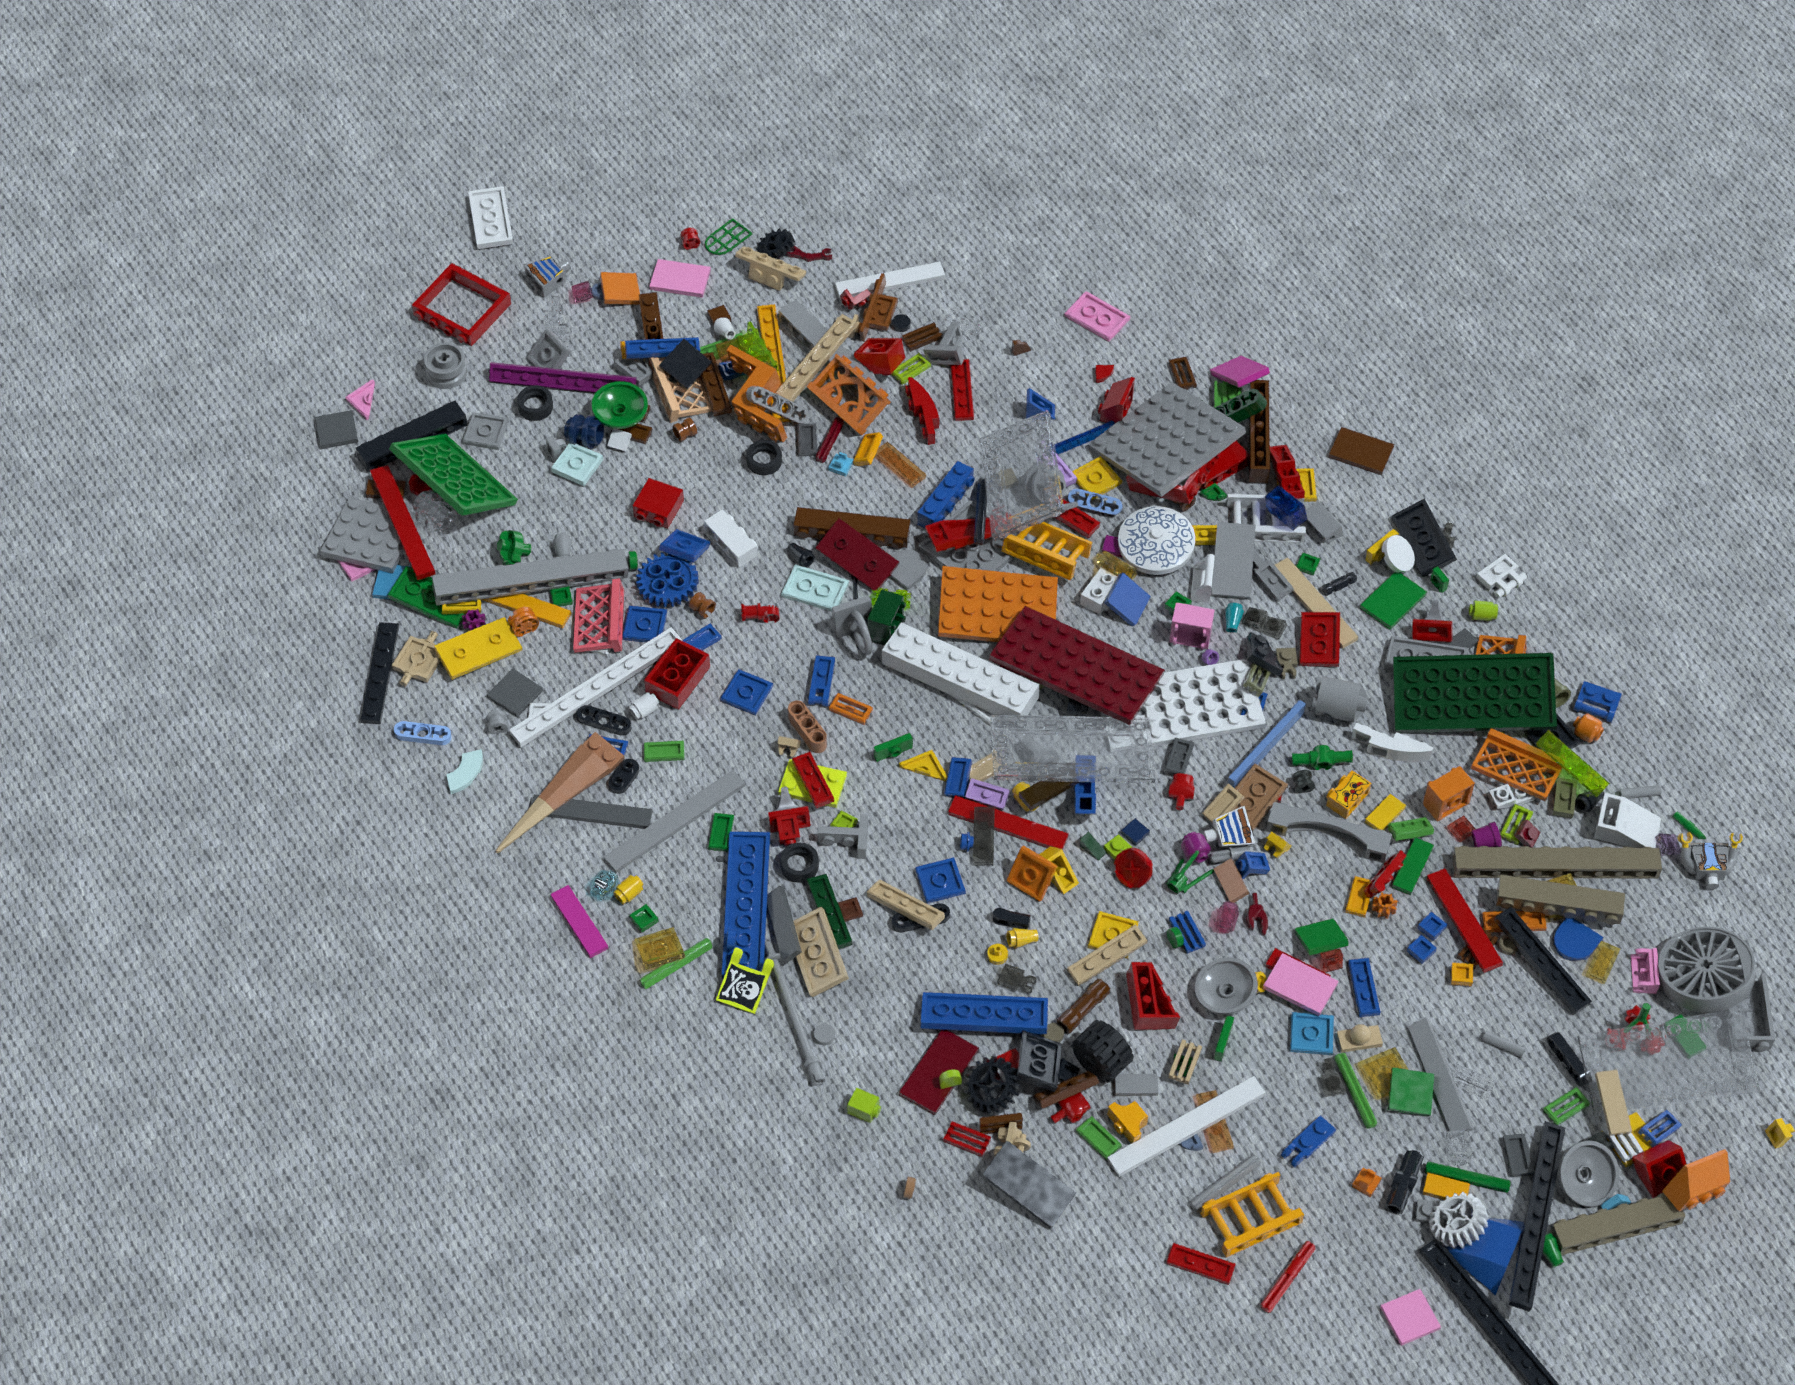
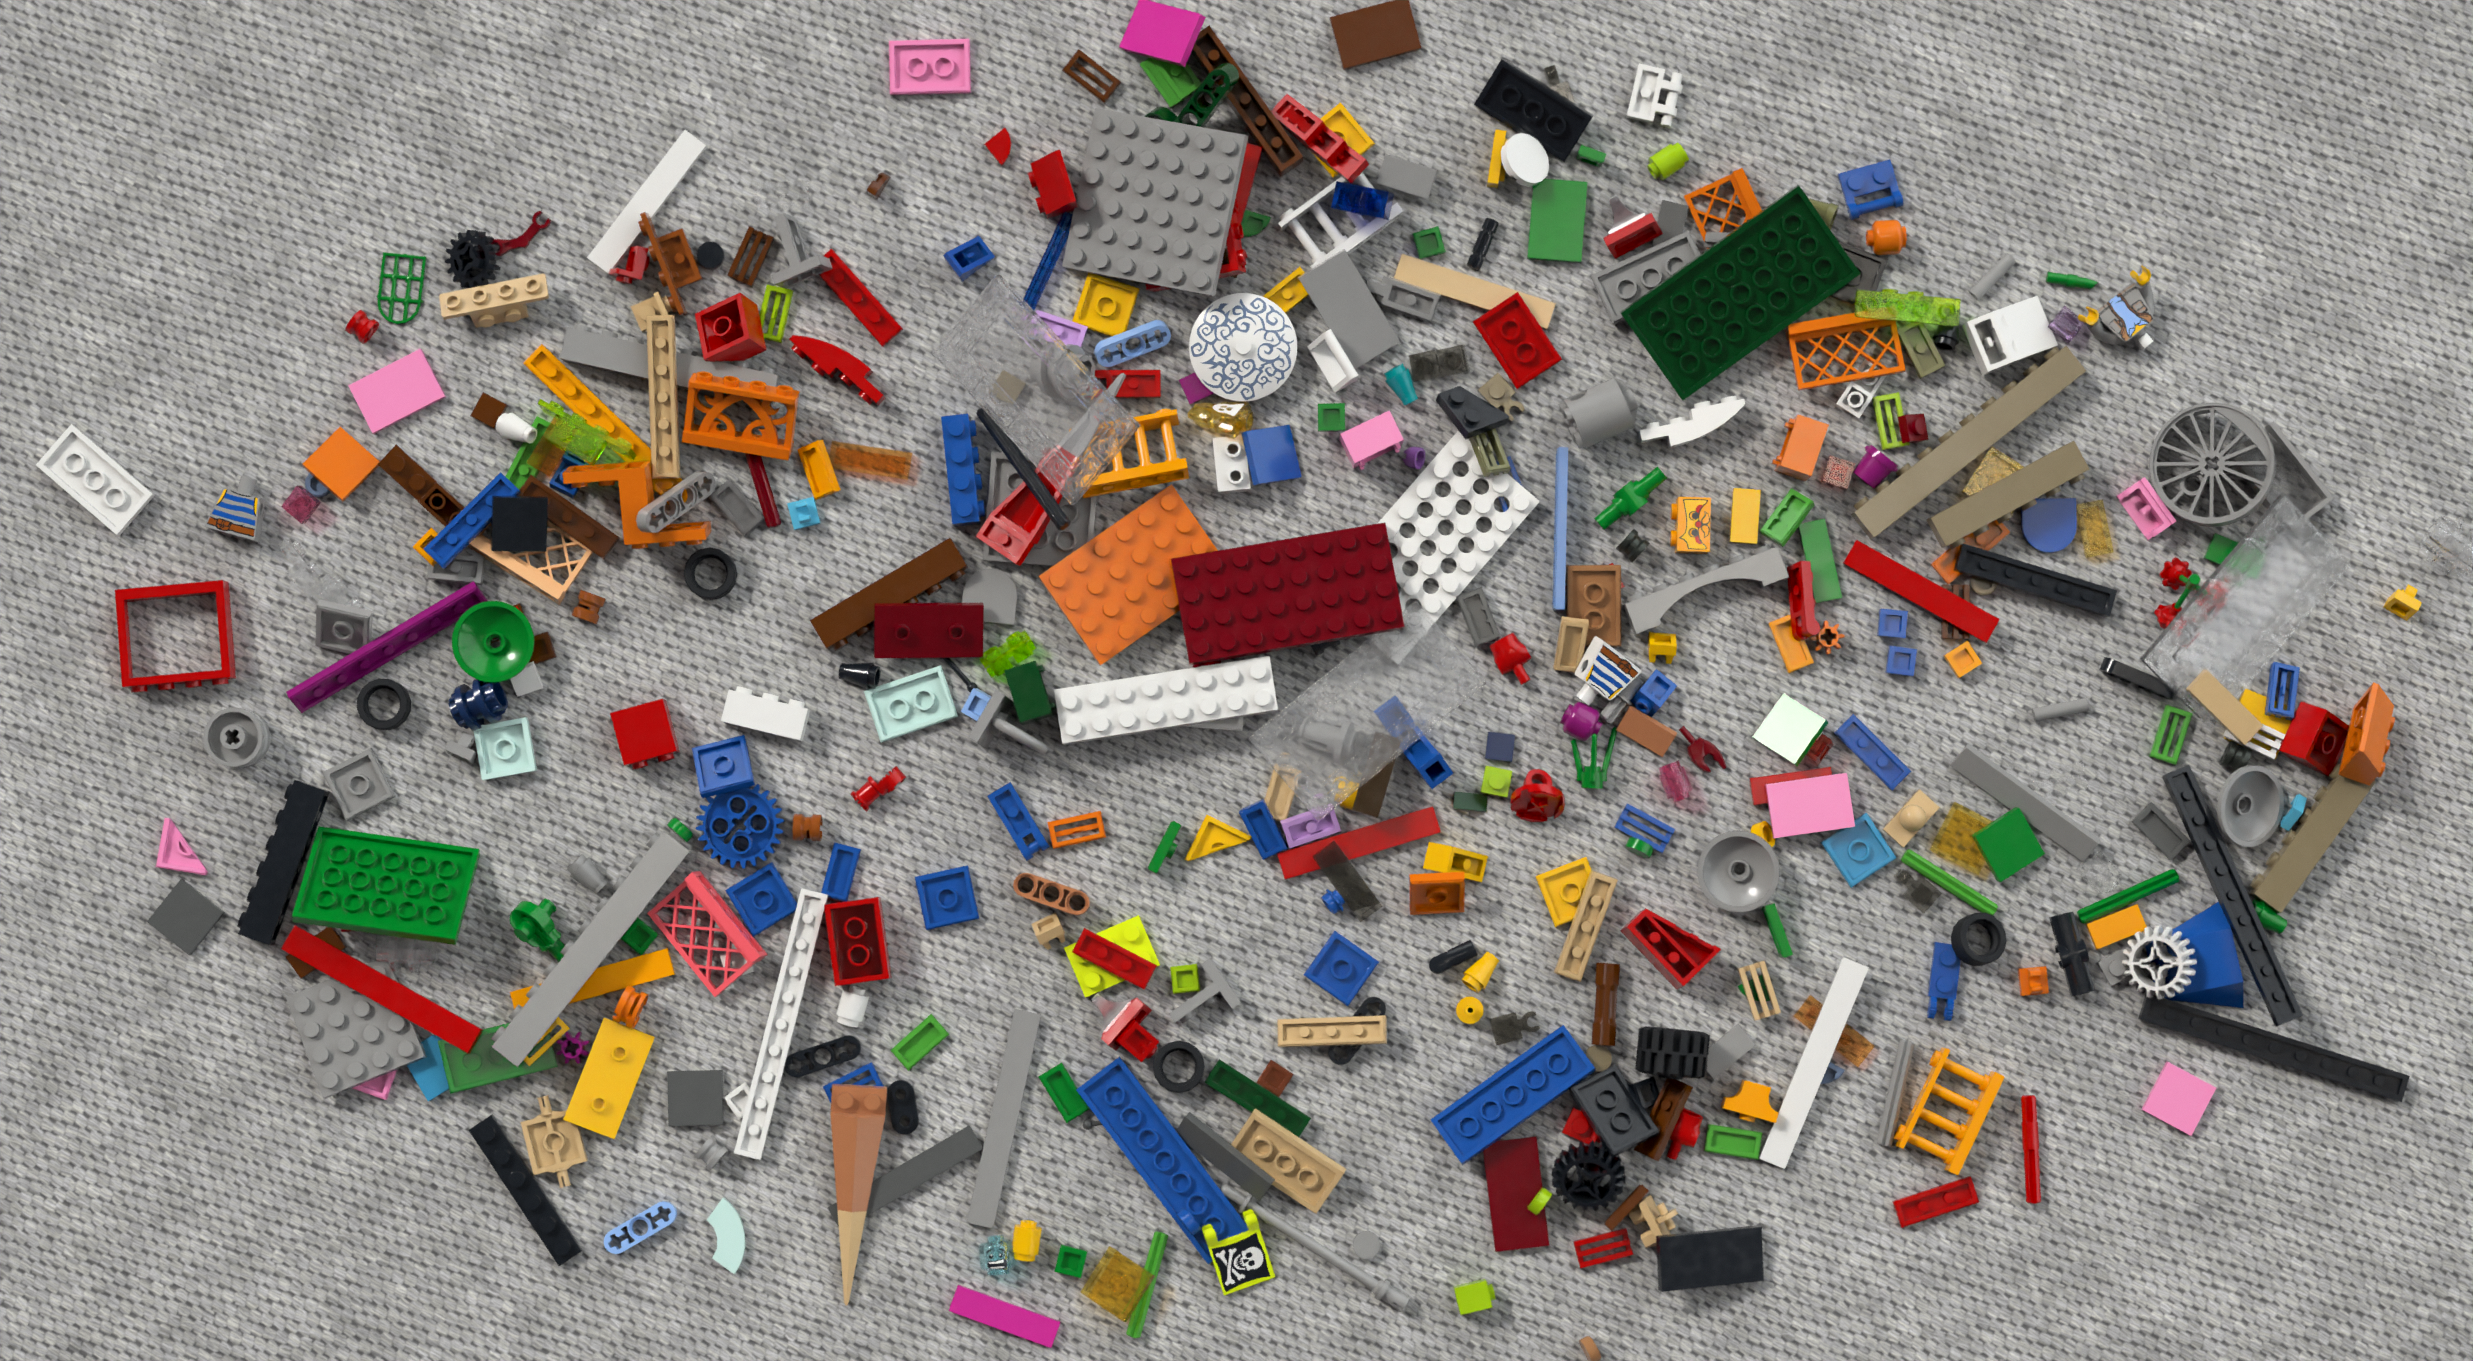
camera: 35 degrees left, 30 degrees up
(1361, 1123) = (1996, 933): none -> black tyre

